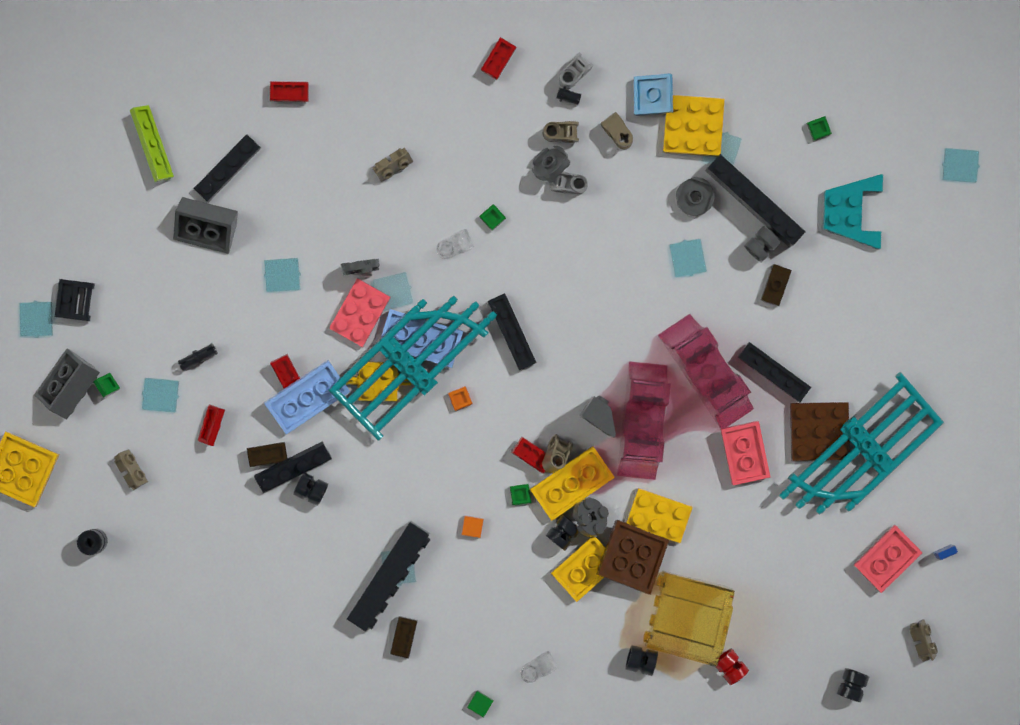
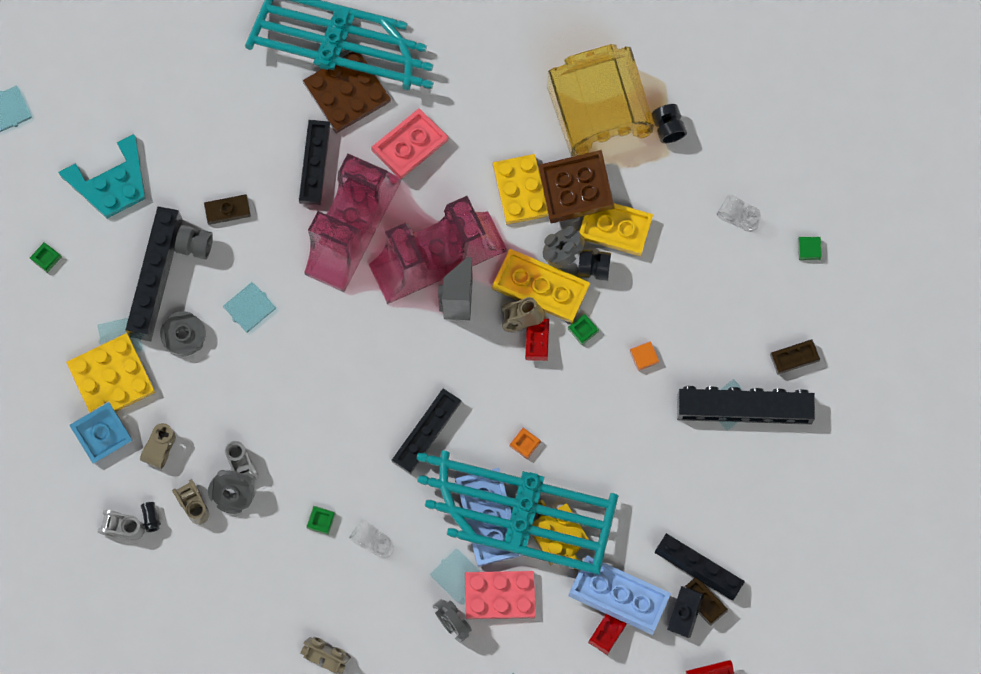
camera: 120 degrees left, 15 degrees down
(266, 436) = (685, 611): none -> black plate
(317, 488) = (712, 526): black wheel -> none
(498, 58) = (150, 611): red plate -> none
(731, 667) = (623, 35): red wheel -> none

